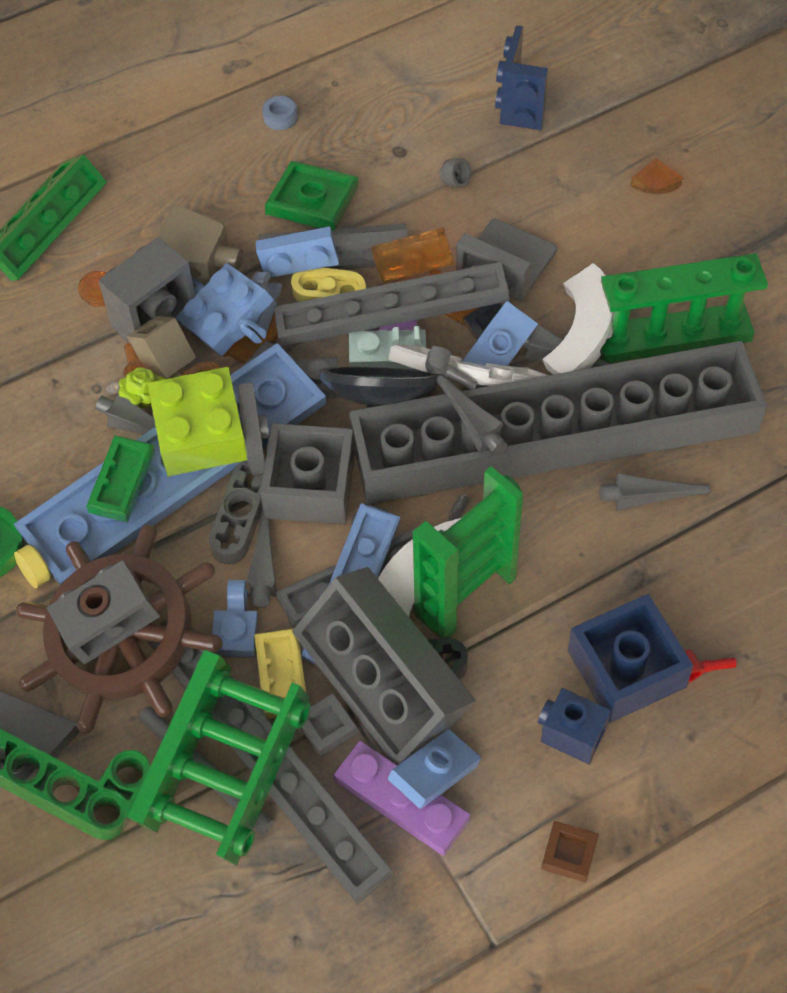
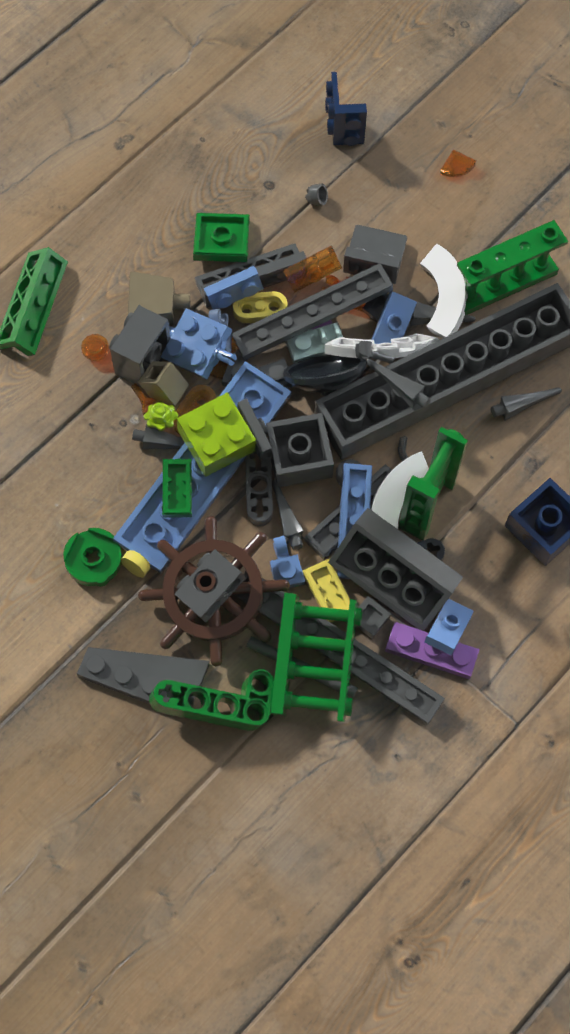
camera: 20 degrees left, 10 degrees up
(280, 112) = (172, 174): sand blue tile -> none
(569, 851) = (547, 655): reddish brown plate -> none
(573, 725) = (525, 574): dark blue brick -> none

